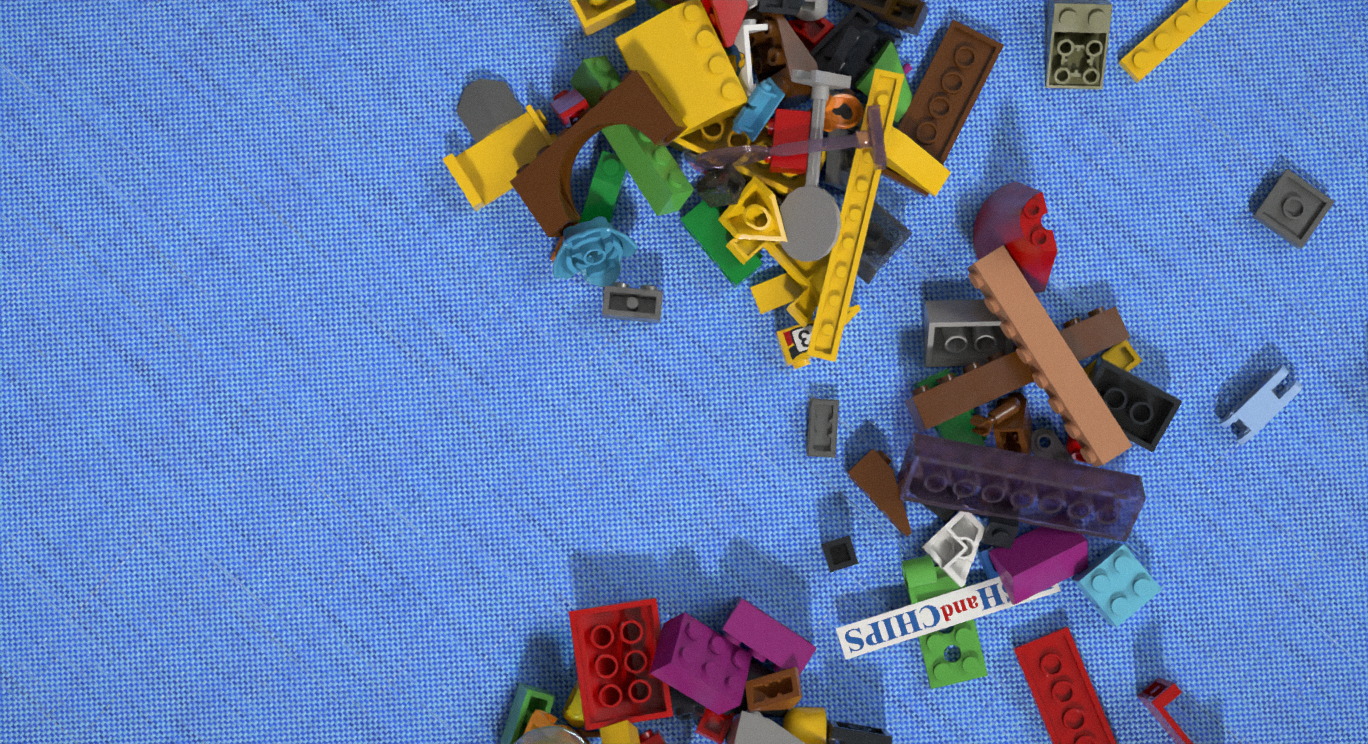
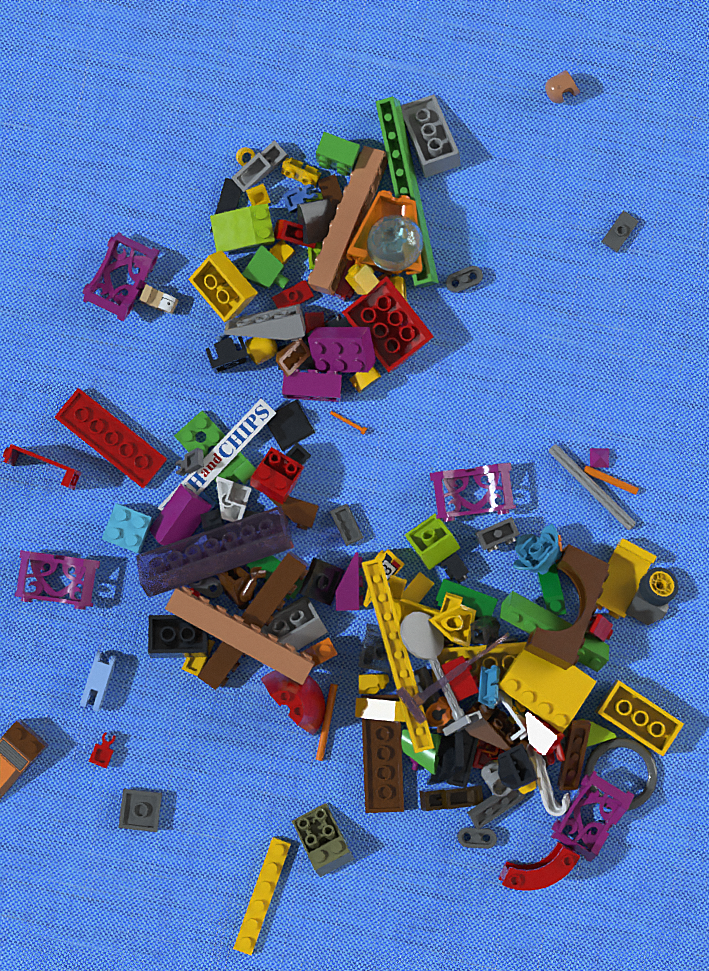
camera: 155 degrees right, 0 degrees up
(238, 616) = (619, 231): none -> dark grey plate
(441, 331) = (599, 457): none -> magenta slope
(443, 293) = (611, 480): none -> orange bar
(451, 114) = (666, 583): none -> wheel
(473, 298) = (592, 487): none -> light grey axle
(482, 669) = (463, 279): none -> dark grey plate
(593, 388) = (491, 471): none -> magenta fence
(695, 605) = (364, 380): none -> yellow piece
(711, 291) = (455, 568): none -> black brick
(723, 343) = (432, 541): none -> lime slope
(731, 541) = (363, 430): none -> orange piece
(824, 602) = (290, 425): none -> black piece
(869, 339) = (348, 590): none -> magenta slope
(882, 542) = (276, 475): none -> red slope
(898, 370) = (321, 581): none -> black plate
(903, 204) = (372, 683): none -> yellow rock
(949, 281) = (321, 651): none -> orange slope
(984, 624) = (192, 462): none -> dark grey plate
(989, 188) = (326, 722): none -> orange bar
(1203, 566) = (83, 568): none -> magenta fence
(1304, 309) = (102, 753): none -> red plate

